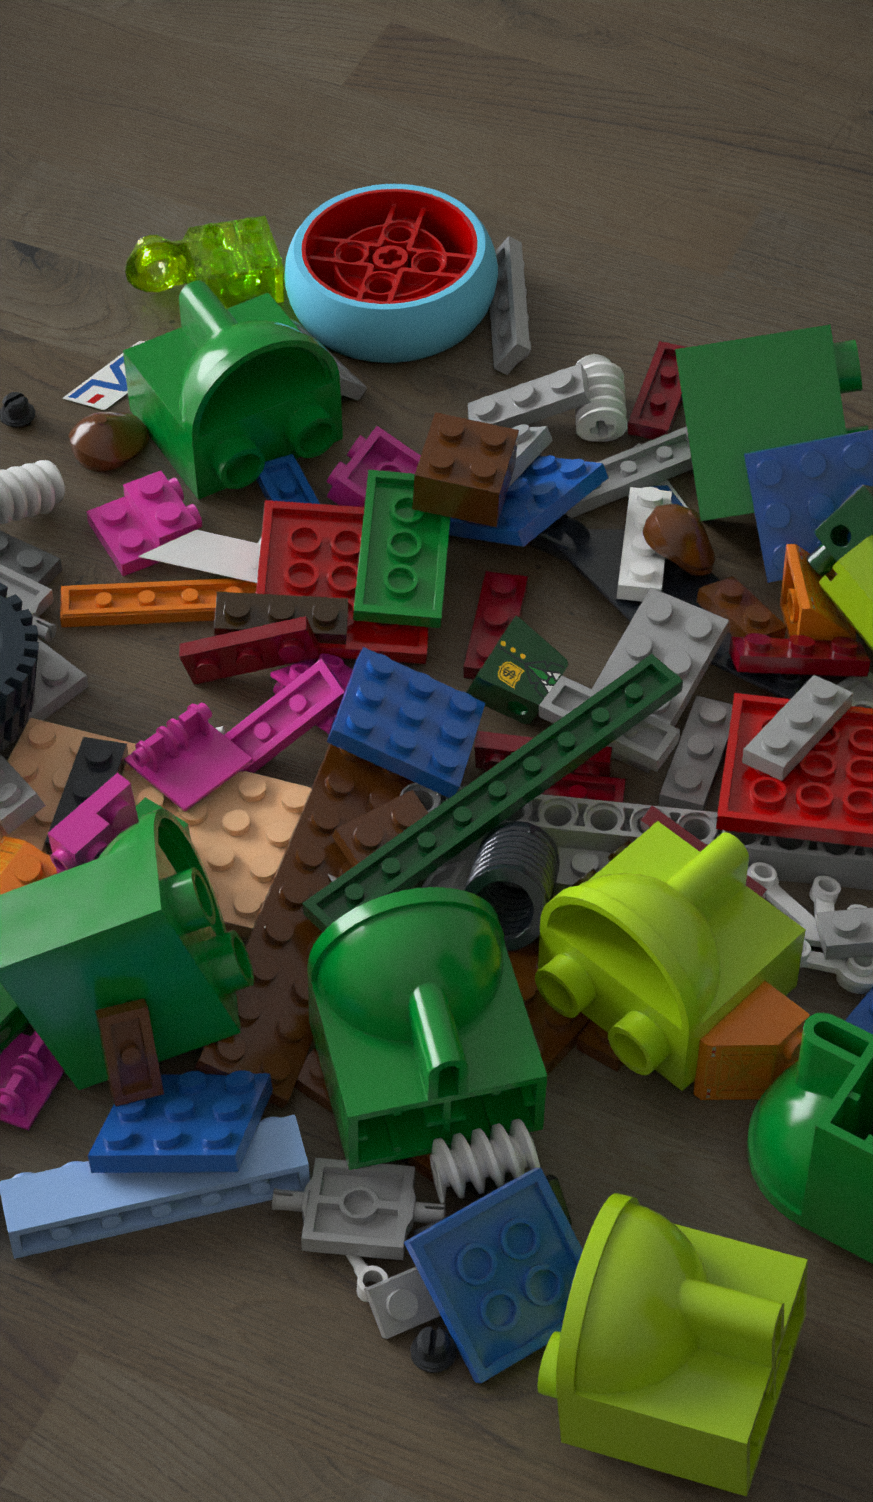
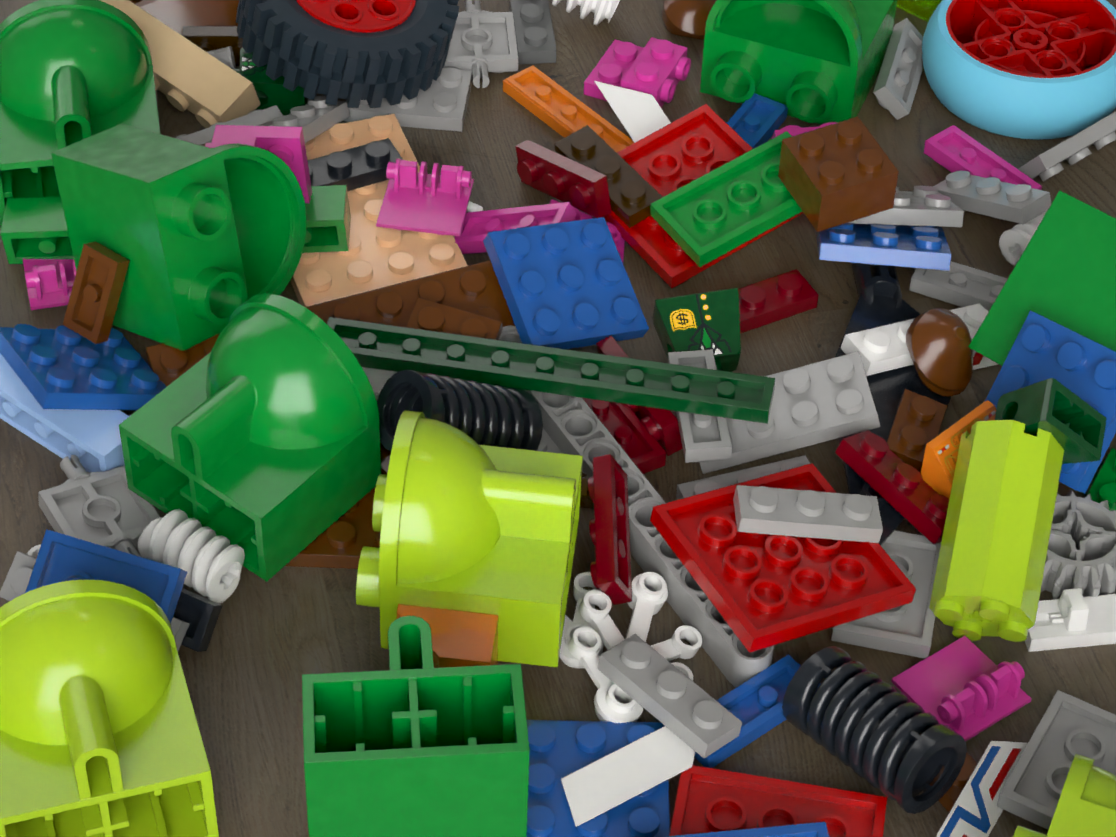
camera: 50 degrees right, 5 degrees down
(460, 386) = (961, 152): none -> dark pink plate

